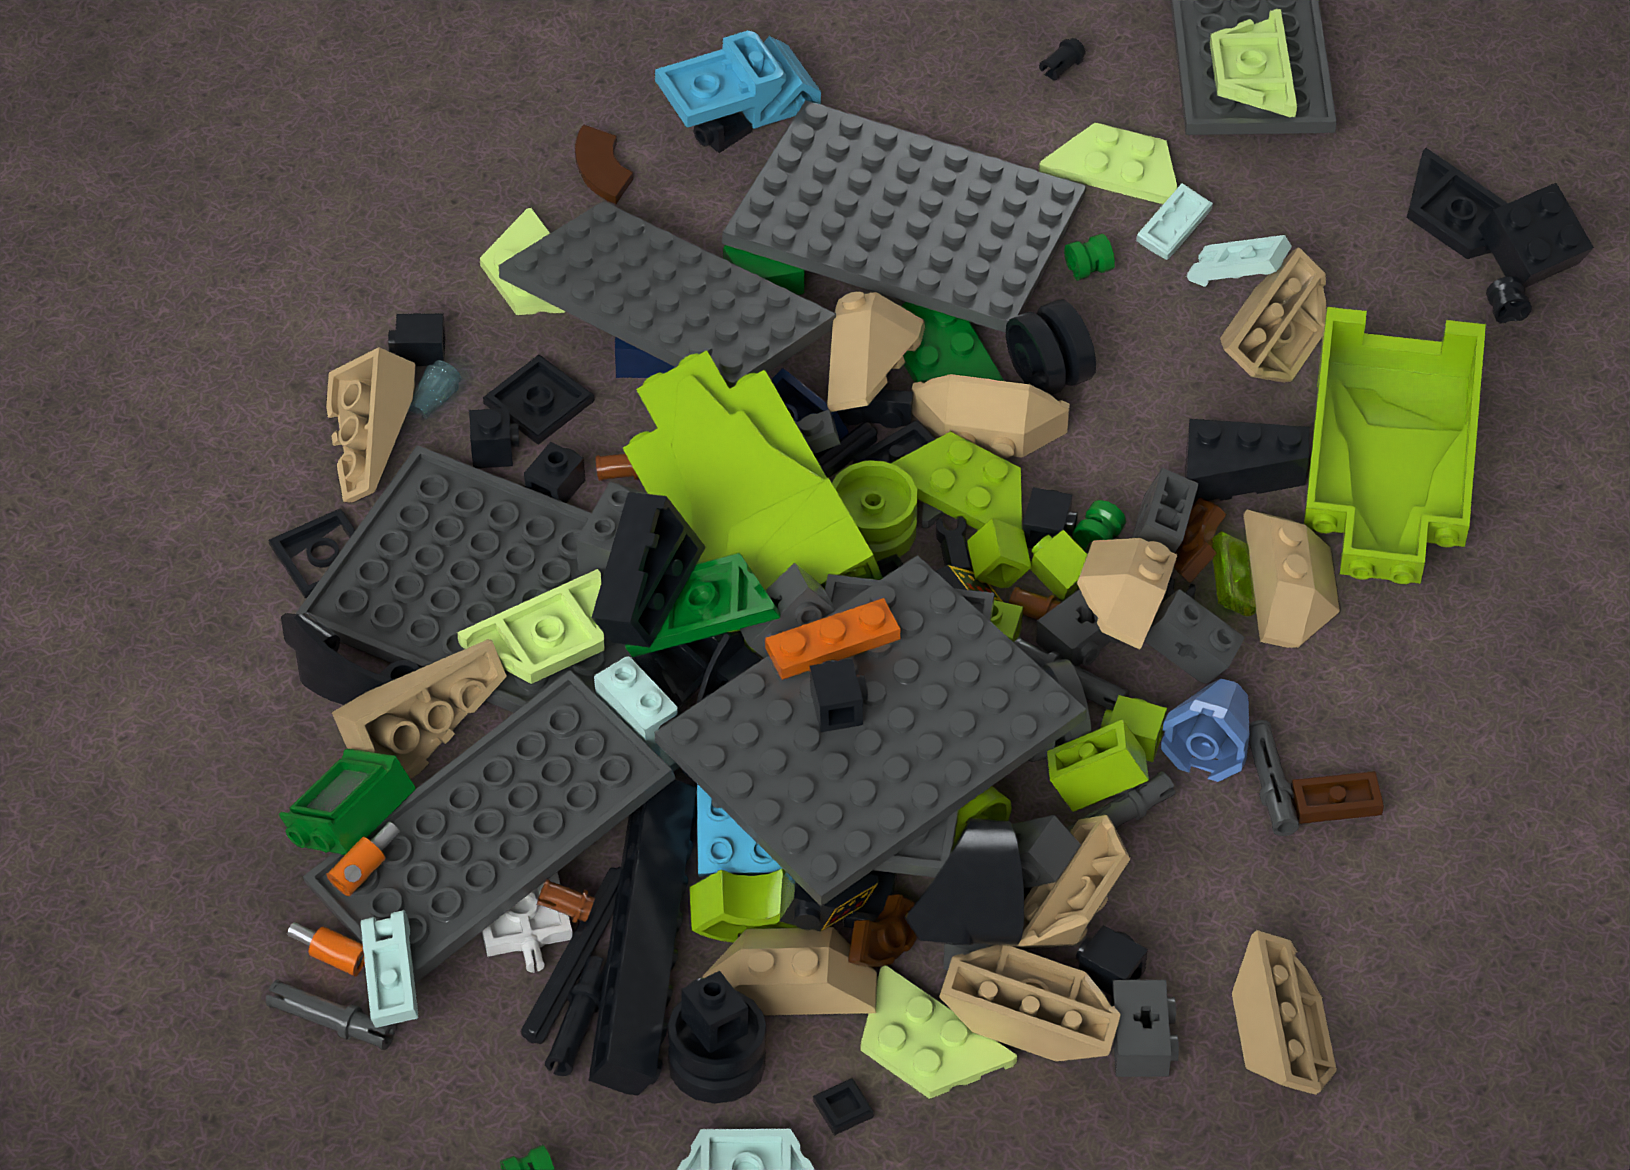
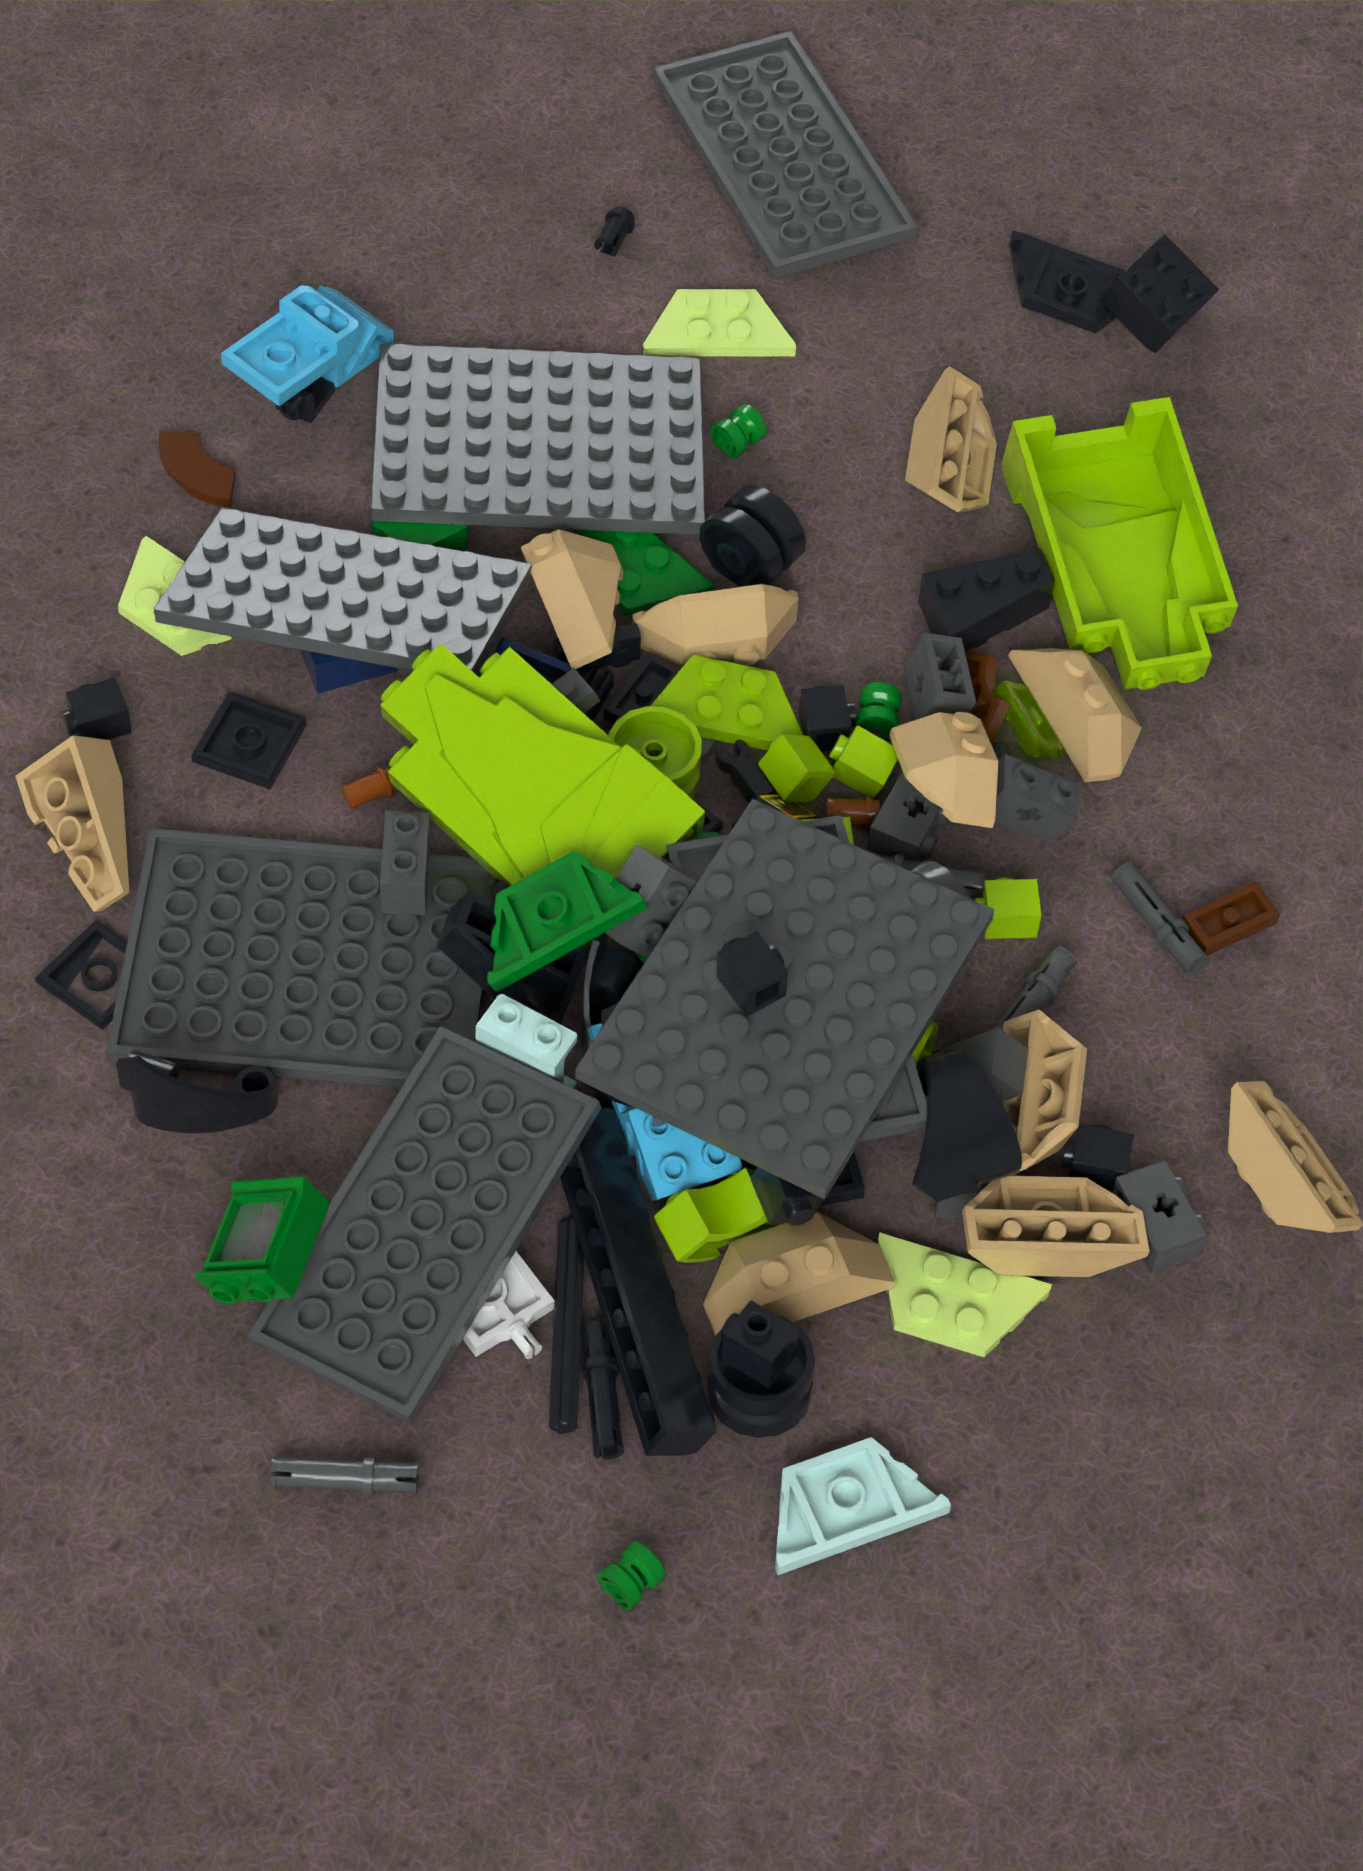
camera: 25 degrees left, 5 degrees up
(331, 947) = (312, 1401): orange piece -> none
(361, 861) = (310, 1300): orange piece -> none
(389, 969) = (395, 1408): light aqua plate -> none
(421, 708) = (289, 1115): tan wedge -> none
(435, 388) = (137, 759): clear light blue cone -> none
(492, 437) = (225, 797): black brick -> none
(544, 631) = (381, 991): yellowish green wing -> none
(556, 472) = (309, 814): black brick -> none
(566, 900) = (538, 1272): dark orange pin -> none
(645, 569) = (485, 898): black wedge -> none
(832, 638) = (715, 914): orange plate -> none
(843, 1106) = (906, 1394): black tile -> none
(884, 939) = (873, 1200): reddish brown tile -> none
(1097, 765) = (1004, 960): lime brick -> none
(1174, 222) = (803, 372): light aqua plate -> none
(1209, 727) = (1091, 885): medium blue cone -> none
(1239, 259) = (891, 394): light aqua plate -> none
(1255, 65) = (817, 189): yellowish green wing -> none
(1508, 299) = (1157, 364): black wheel -> none

